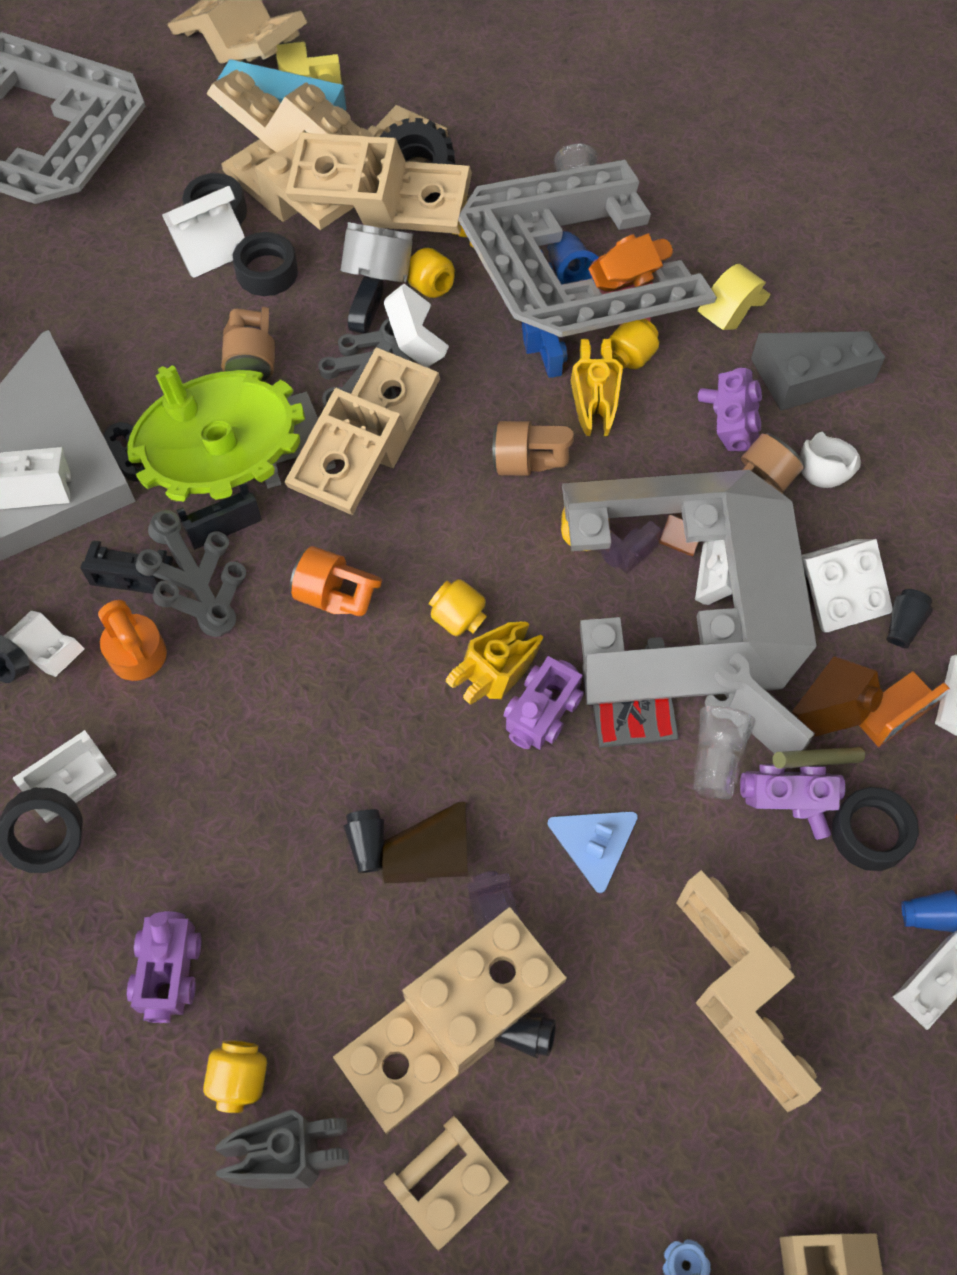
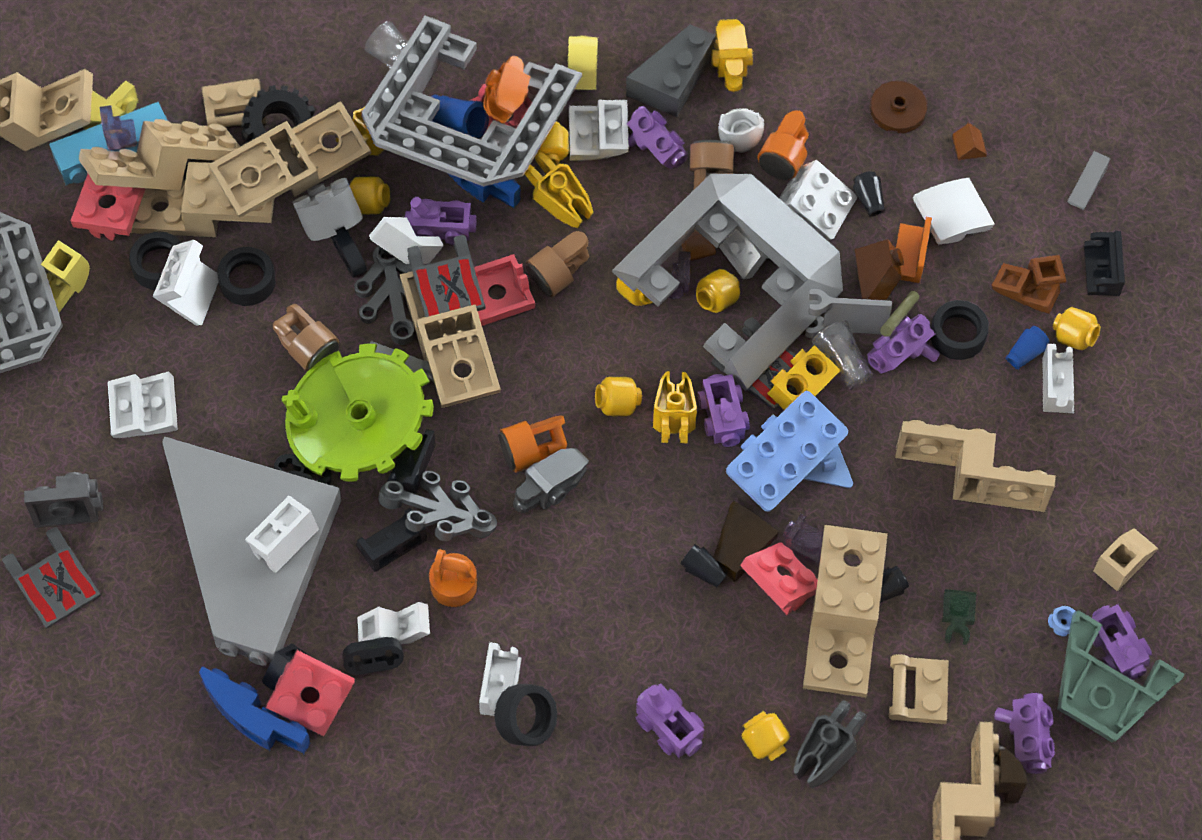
camera: 45 degrees left, 0 degrees up
(77, 301) = (142, 405): none -> white slope
(130, 157) = (66, 272): none -> light yellow brick
(214, 146) = (107, 221): none -> coral piece
(275, 71) = (117, 132): none -> clear purple bracket
(313, 631) = (550, 480): none -> hinge
(402, 932) = (784, 590): none -> coral piece
(409, 384) = (446, 283): none -> flag
(445, 411) = (509, 275): none -> coral piece
(467, 335) = (441, 219): none -> medium lavender brick
(559, 796) = (786, 450): none -> light blue bracket
(580, 1135) = (959, 611): none -> clear green plate
(652, 750) = (800, 377): none -> yellow brick
(655, 588) = (717, 291): none -> yellow head
(690, 366) = (598, 130): none -> white slope
(850, 511) = (785, 149): none -> orange piece
(887, 389) = (731, 53): none -> yellow hinge

